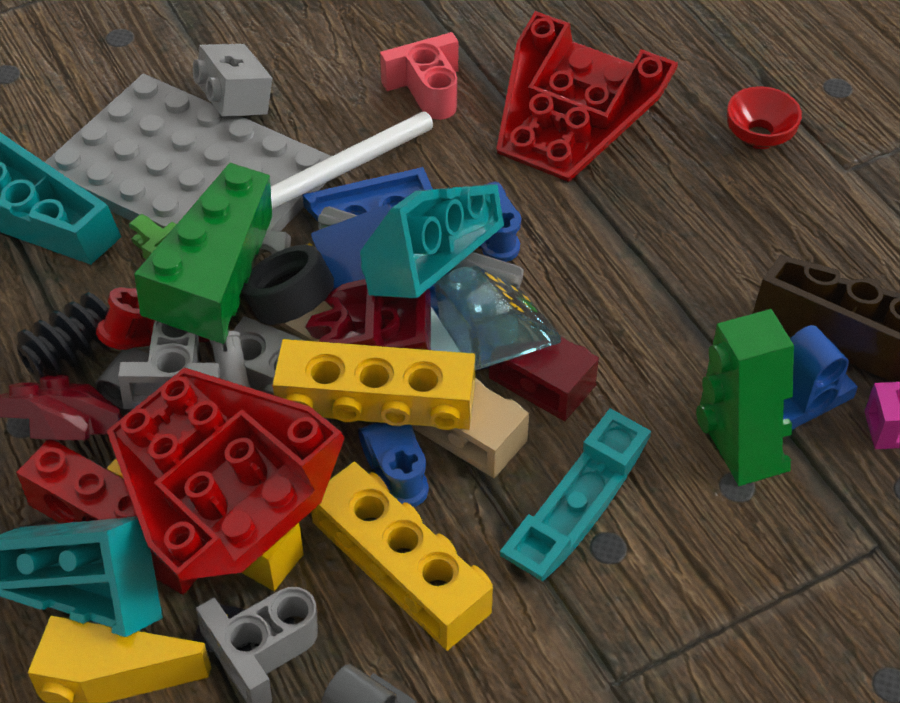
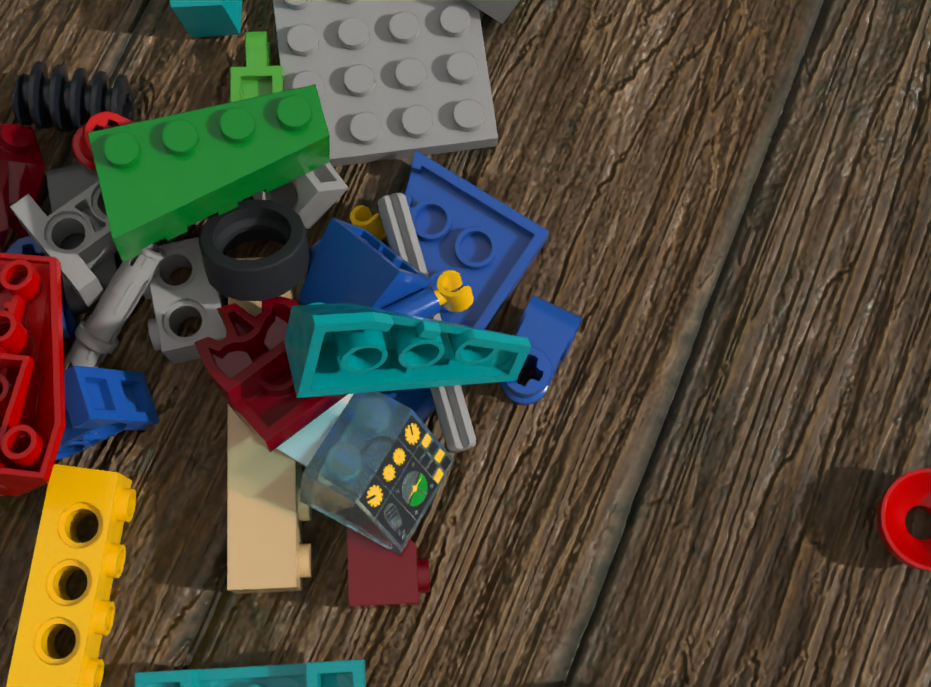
camera: 50 degrees right, 25 degrees up
(350, 158) = (478, 149): white piece -> none
(378, 383) = (159, 350): yellow brick -> none
(396, 460) = (175, 489): blue piece -> none
(427, 71) = (688, 140): coral tile -> none
(572, 99) = (783, 300): red wedge -> none

